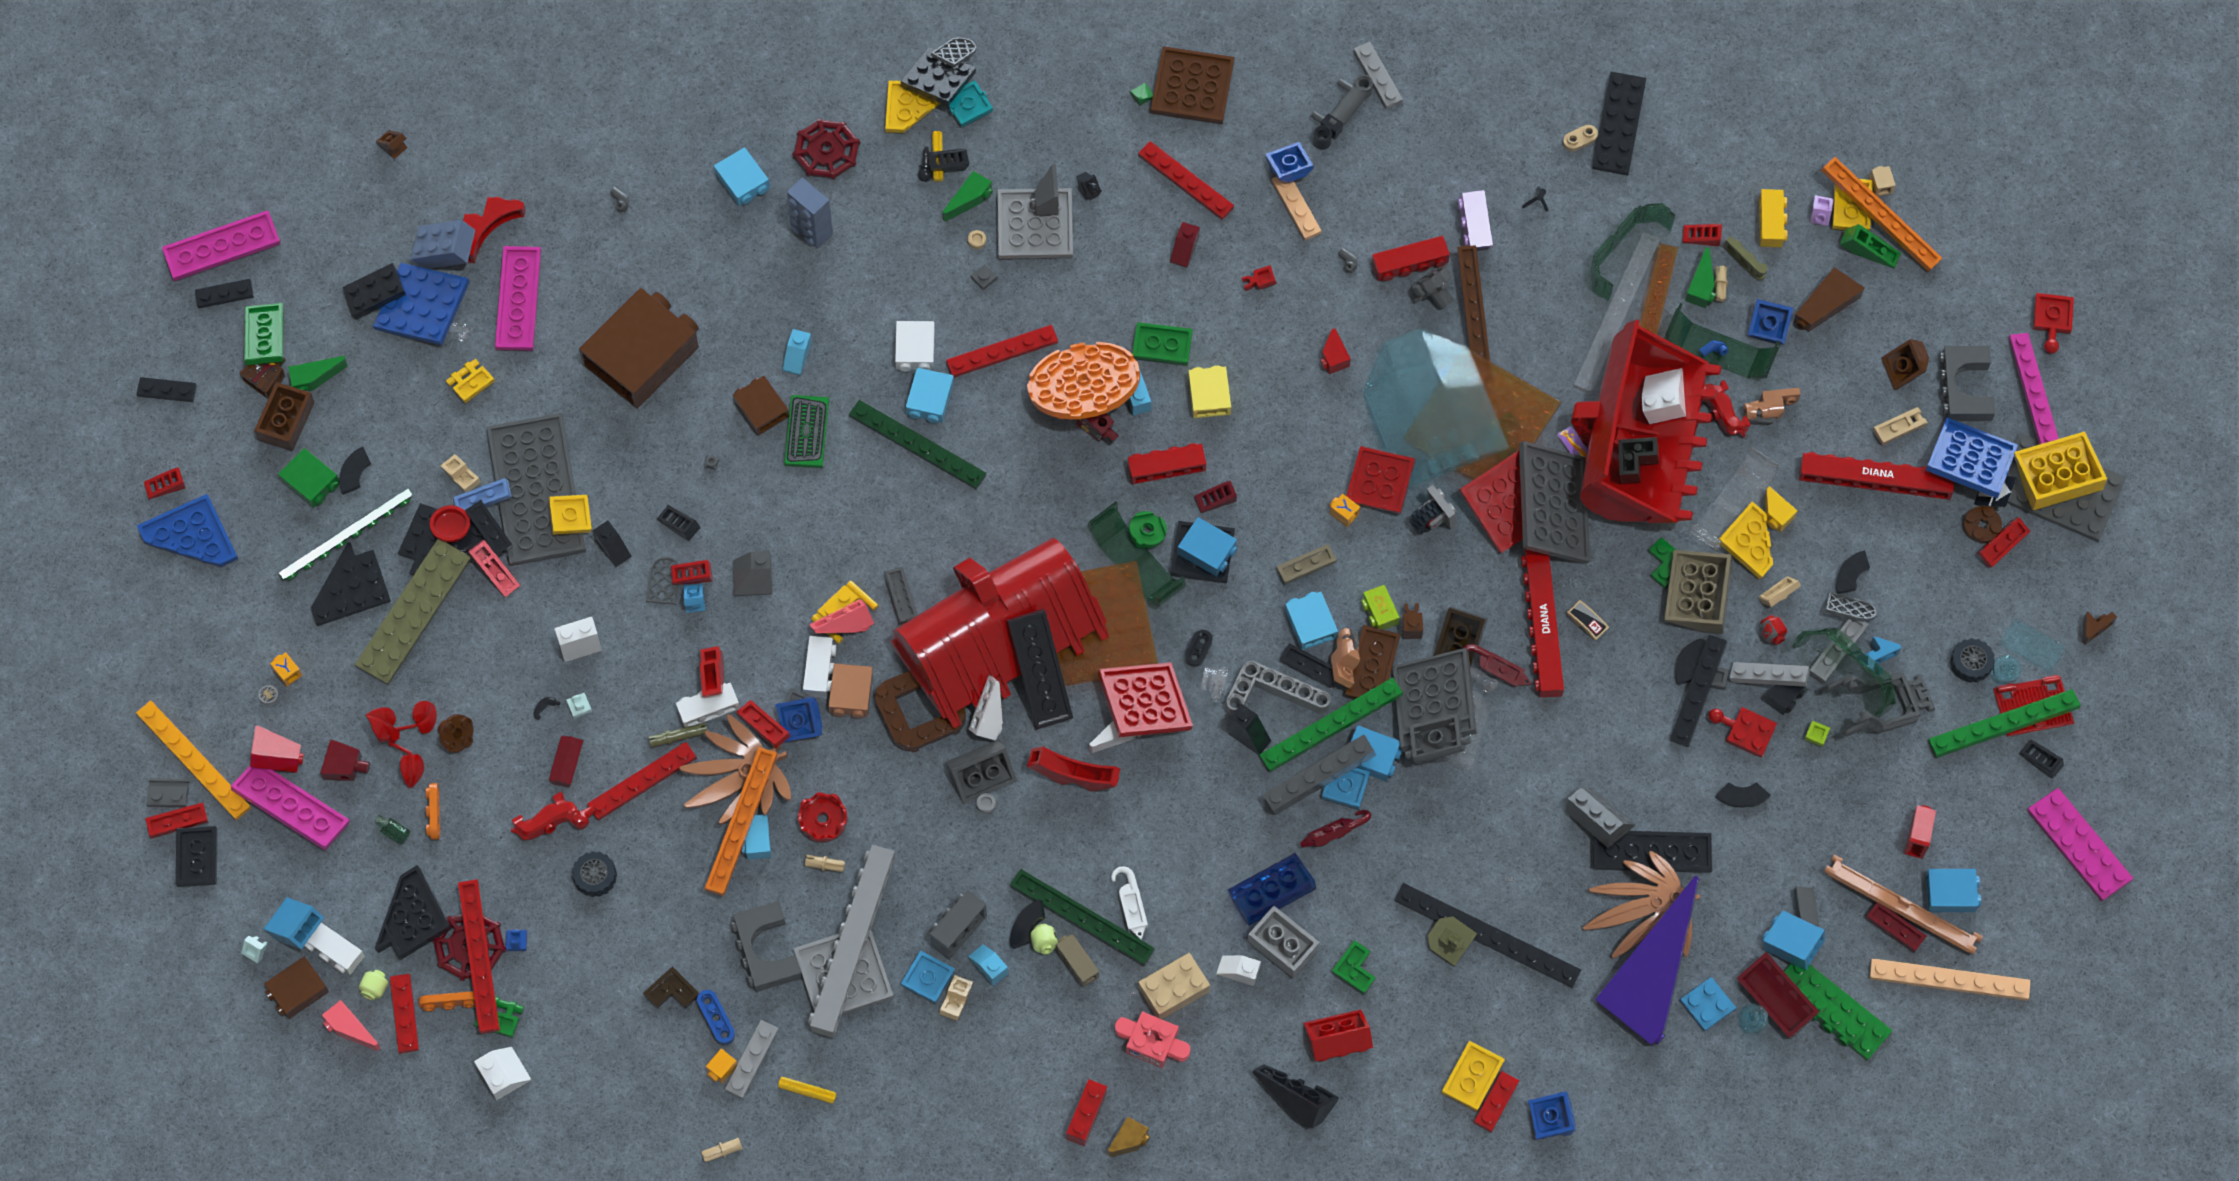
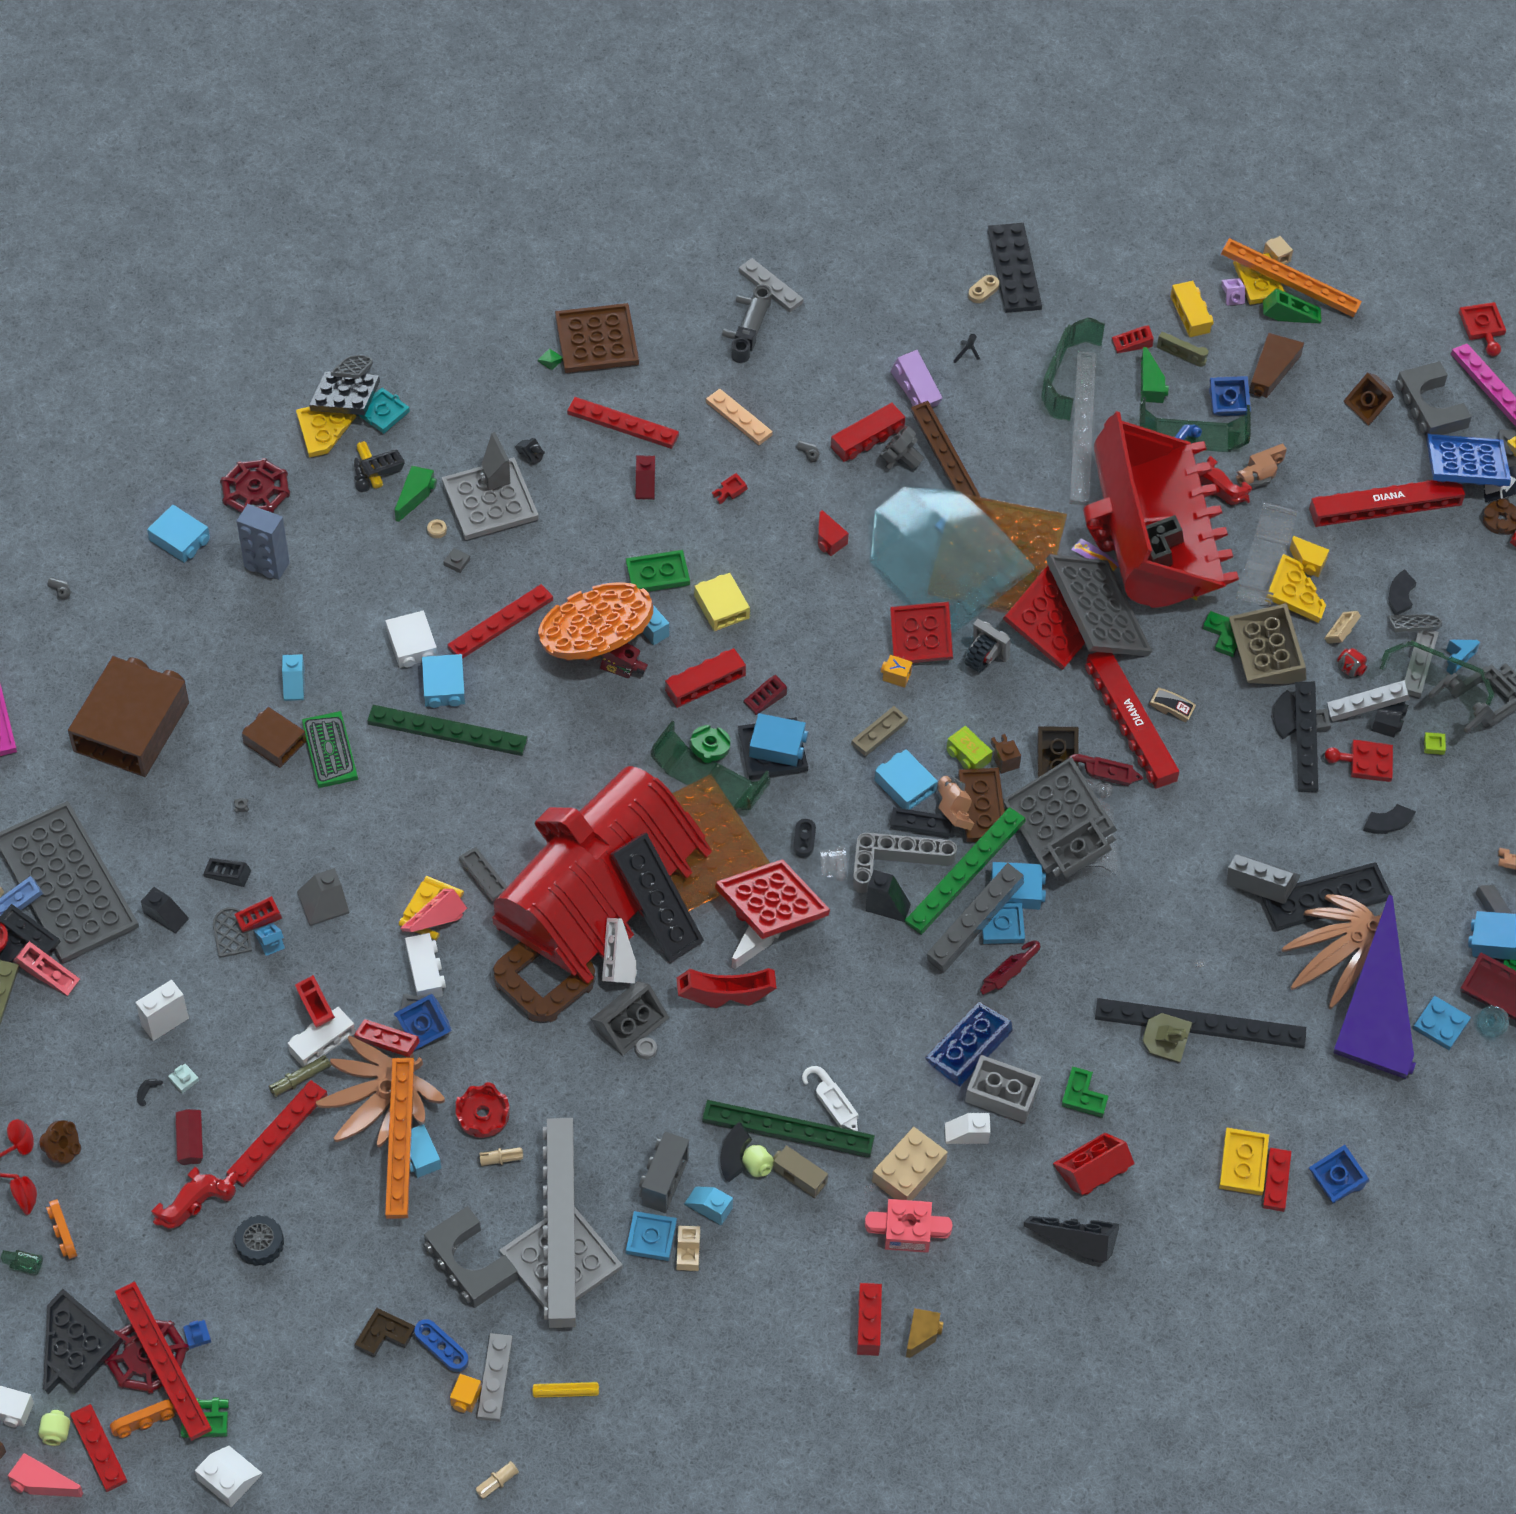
camera: 20 degrees left, 10 degrees down
(570, 514) = (111, 893): yellow plate -> none
(850, 690) = (466, 979): nougat brick -> none
(1289, 162) = (719, 378): blue slope -> none
(1658, 288) = (1111, 386): clear orange plate -> none
(1664, 396) = (1162, 483): white slope -> none
(1720, 283) = (1170, 376): tan axle -> none
(1899, 426) = (1387, 453): tan plate -> none

